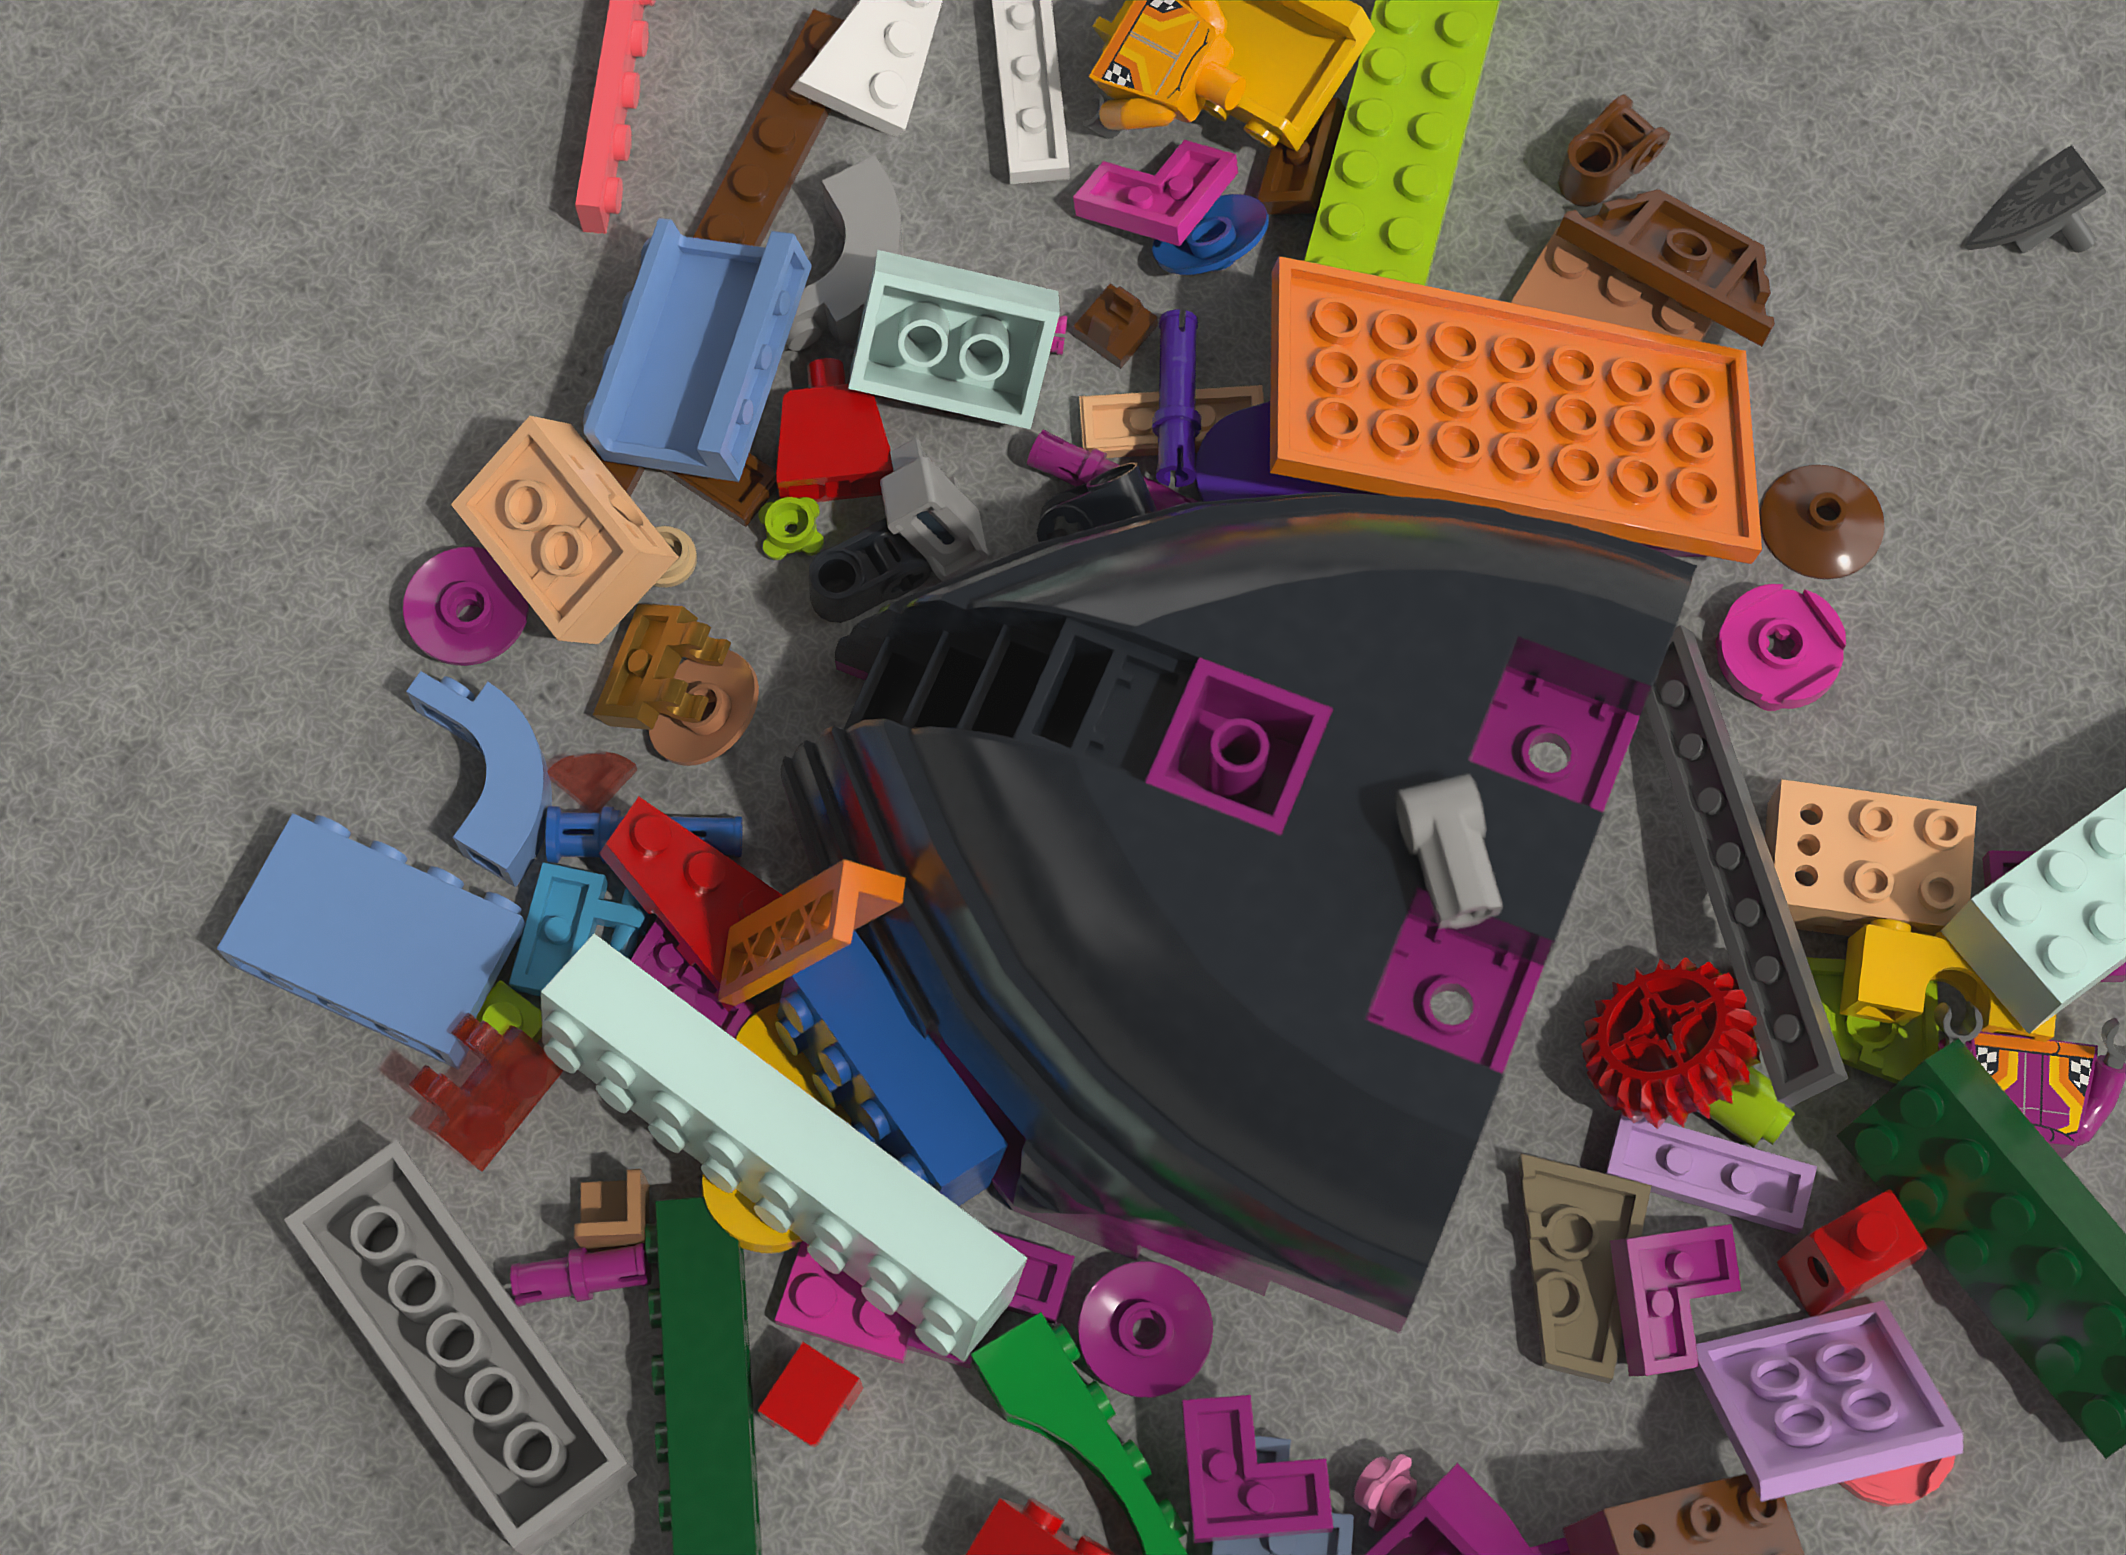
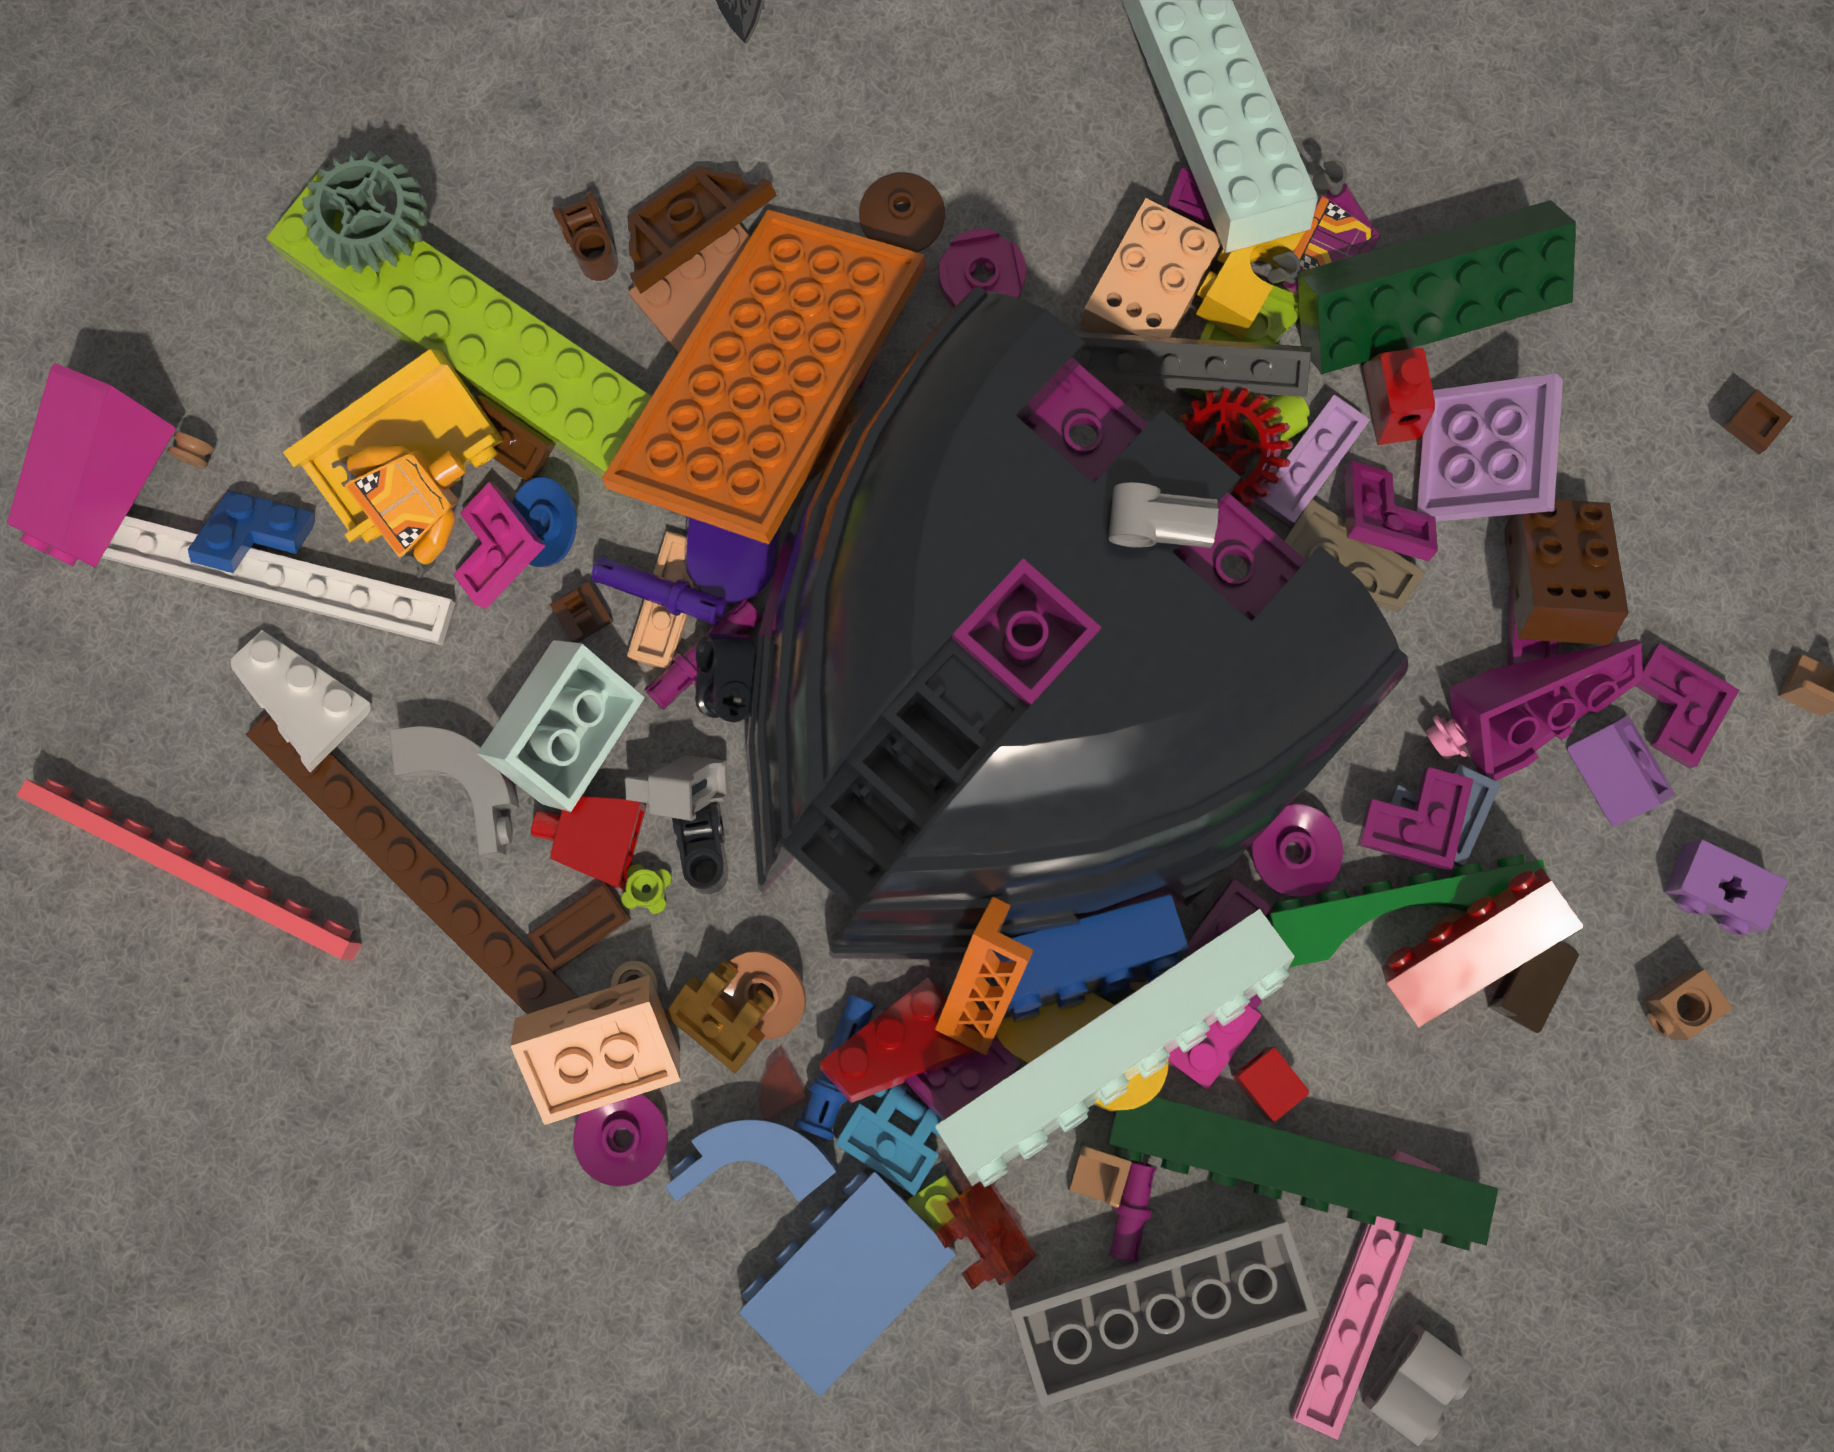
camera: 70 degrees left, 10 degrees up
(696, 353) = (496, 909): medium blue panel -> none

